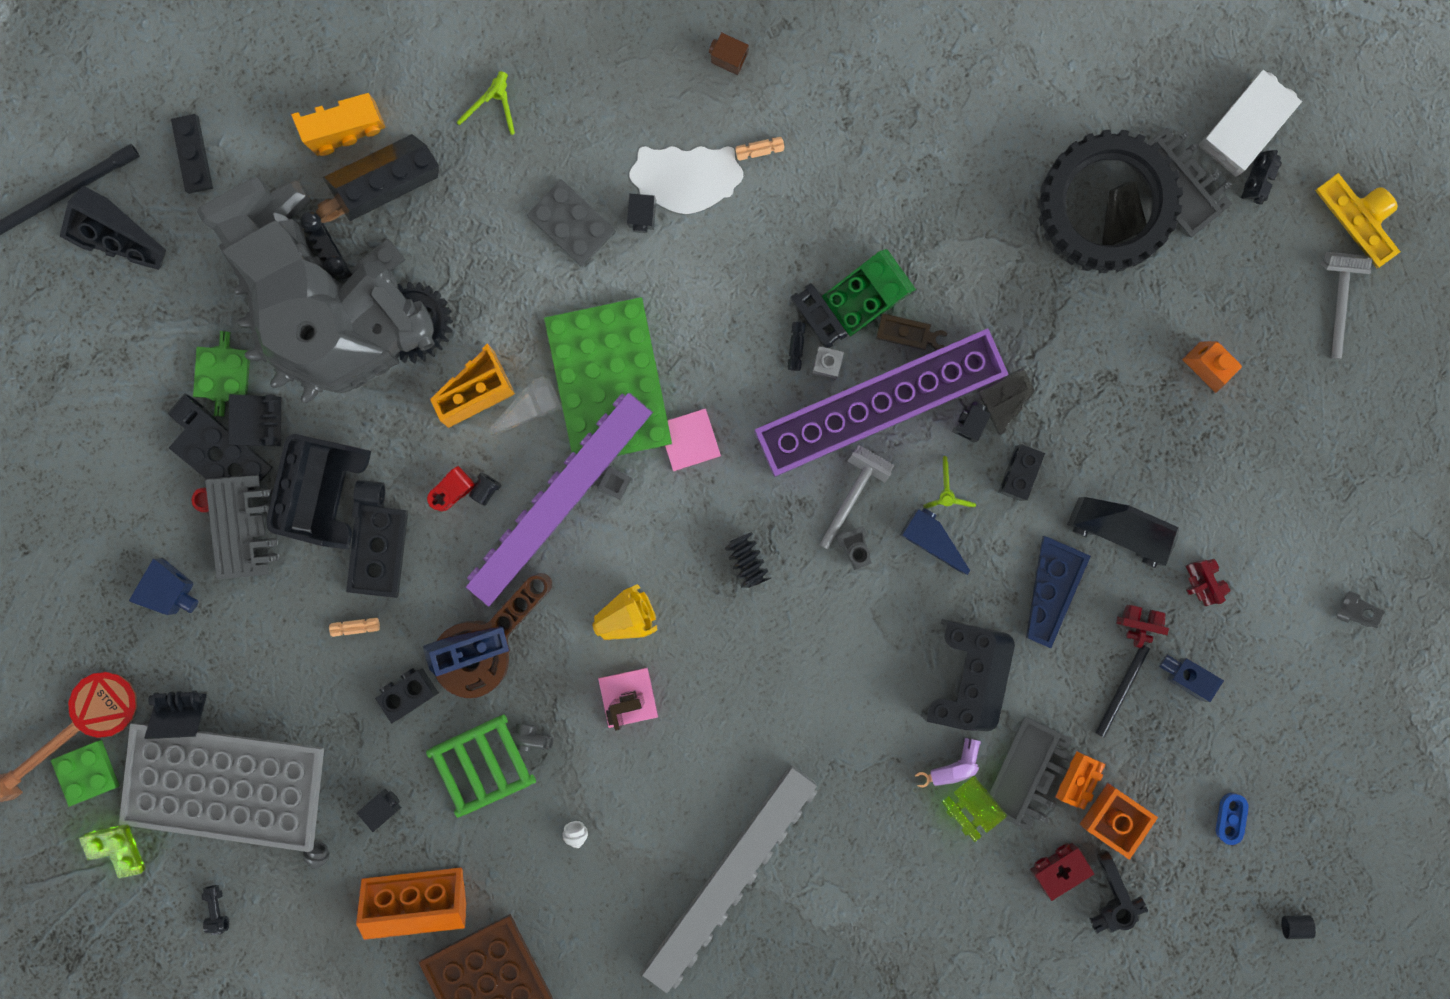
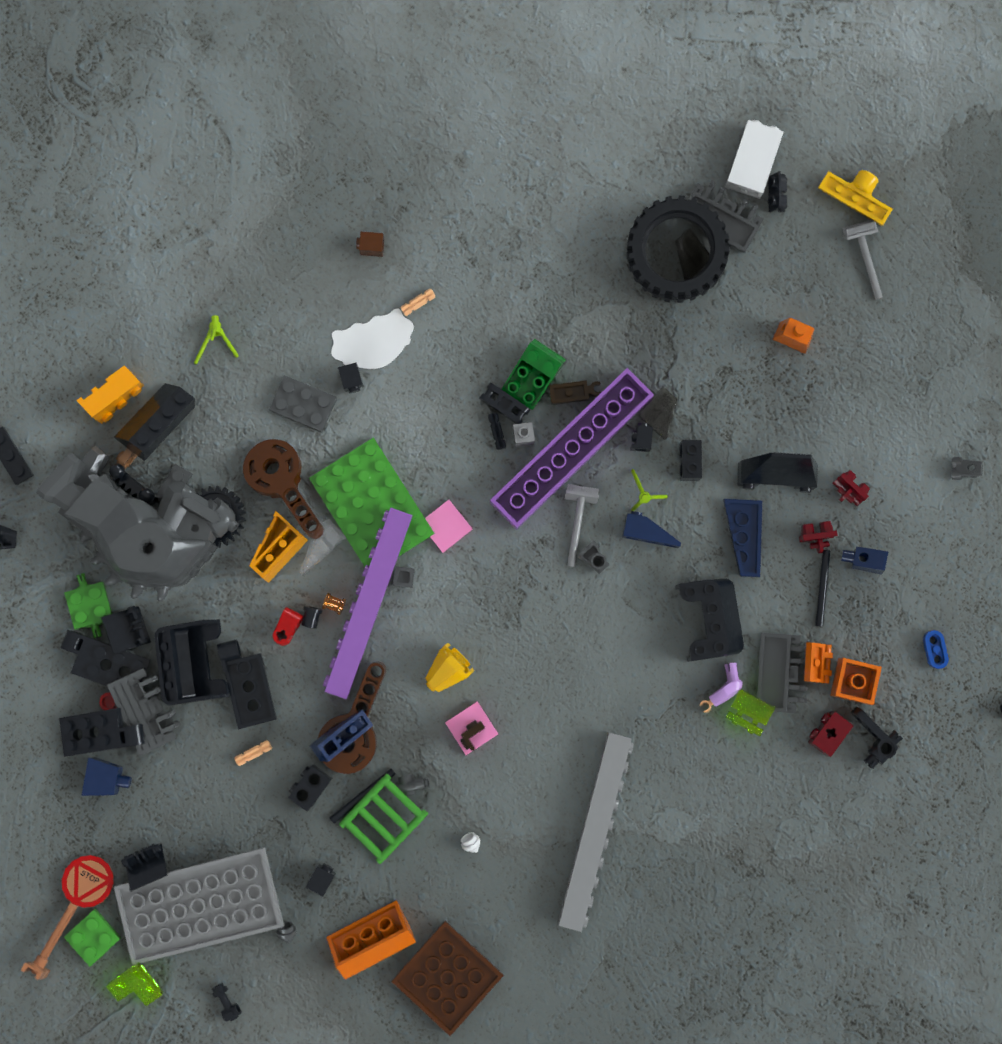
camera: 30 degrees left, 5 degrees down
(190, 538) = (111, 732): none -> black hinge
(452, 732) = (351, 804): none -> black bar
(508, 311) = (282, 483): none -> reddish brown beam
(517, 483) = (334, 603): none -> clear orange bush
(746, 561) = (519, 596): black piece -> none

